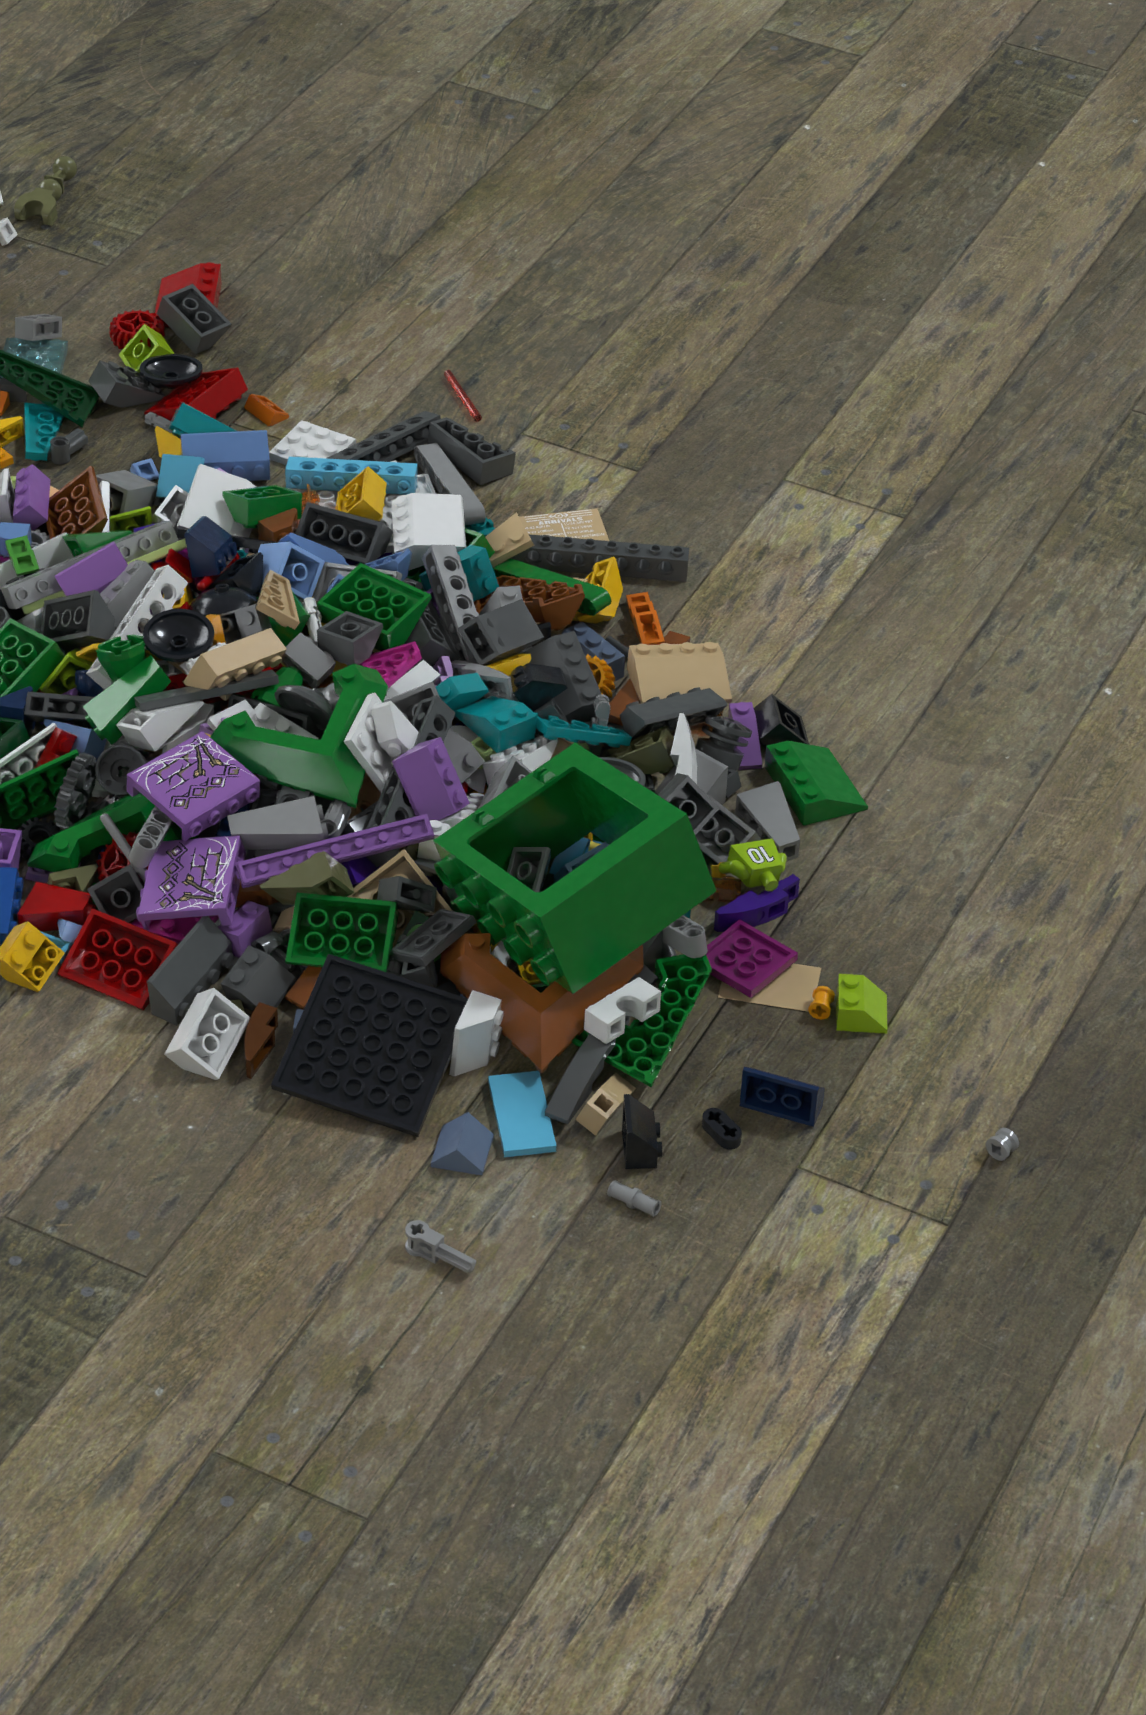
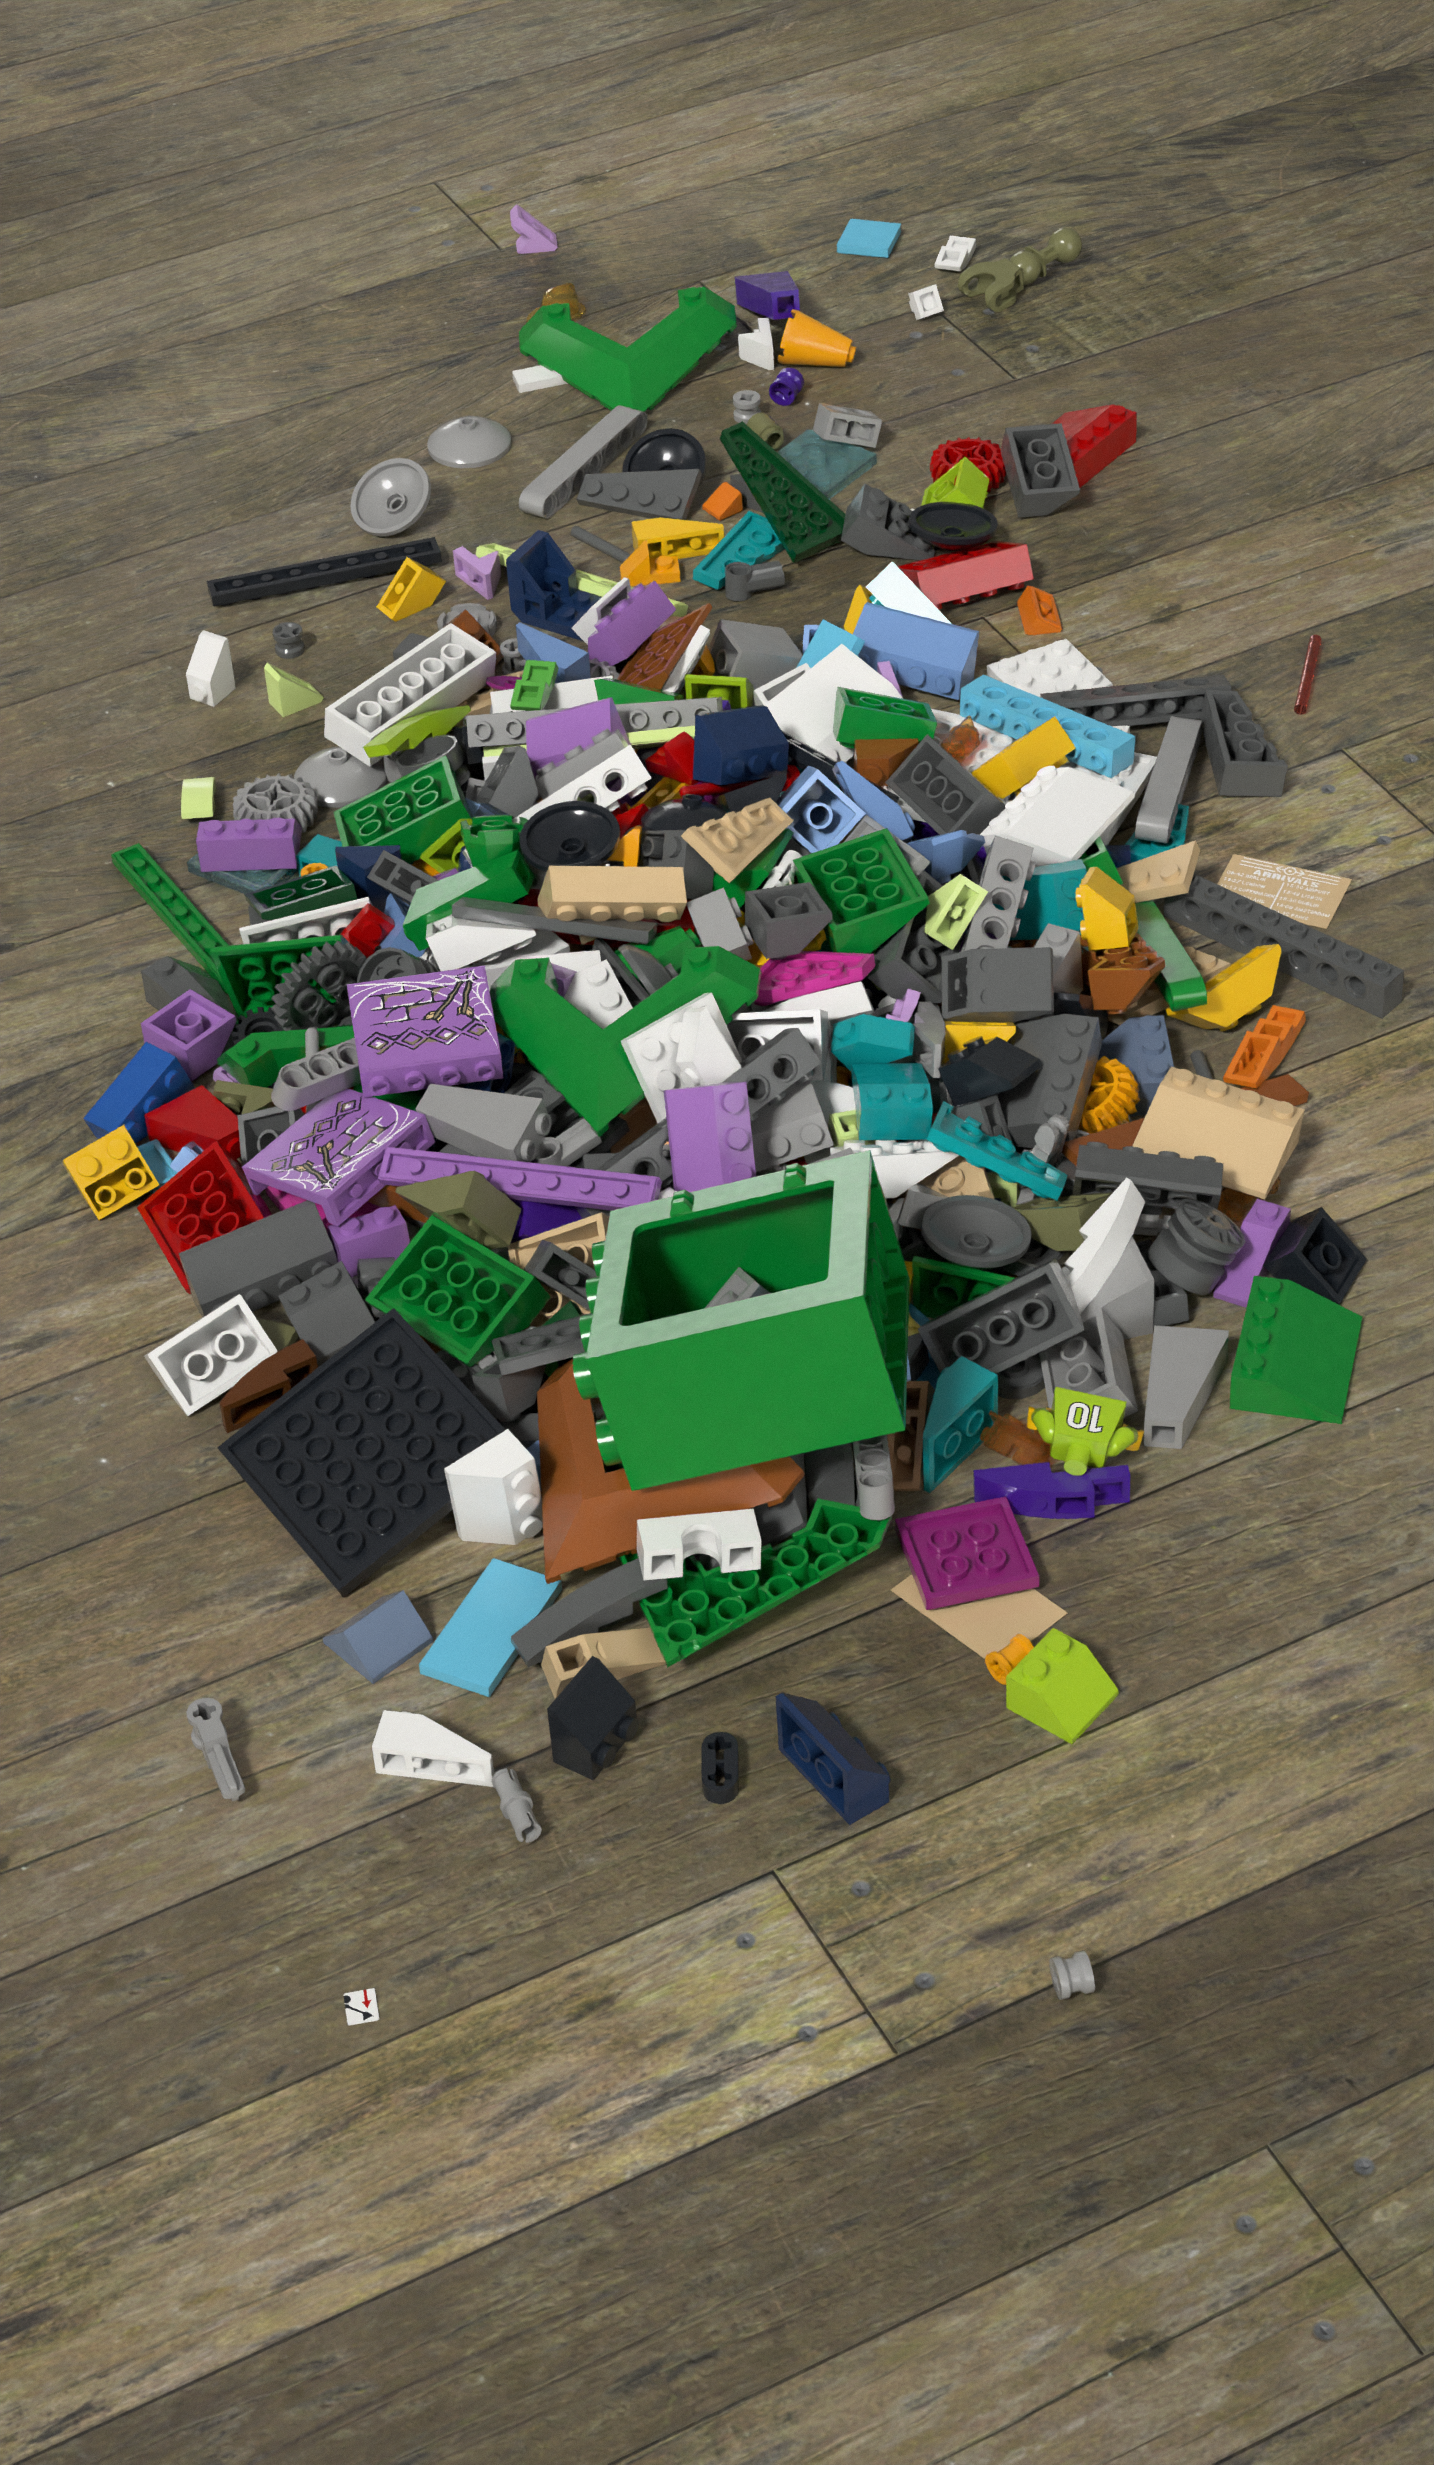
camera: 40 degrees right, 0 degrees up
(439, 589) = (952, 910): none -> yellowish green slope
(513, 570) = (1107, 911): none -> yellow slope
(555, 1192) = (426, 1750): none -> white slope
(649, 1342) = (361, 2006): none -> white sticker

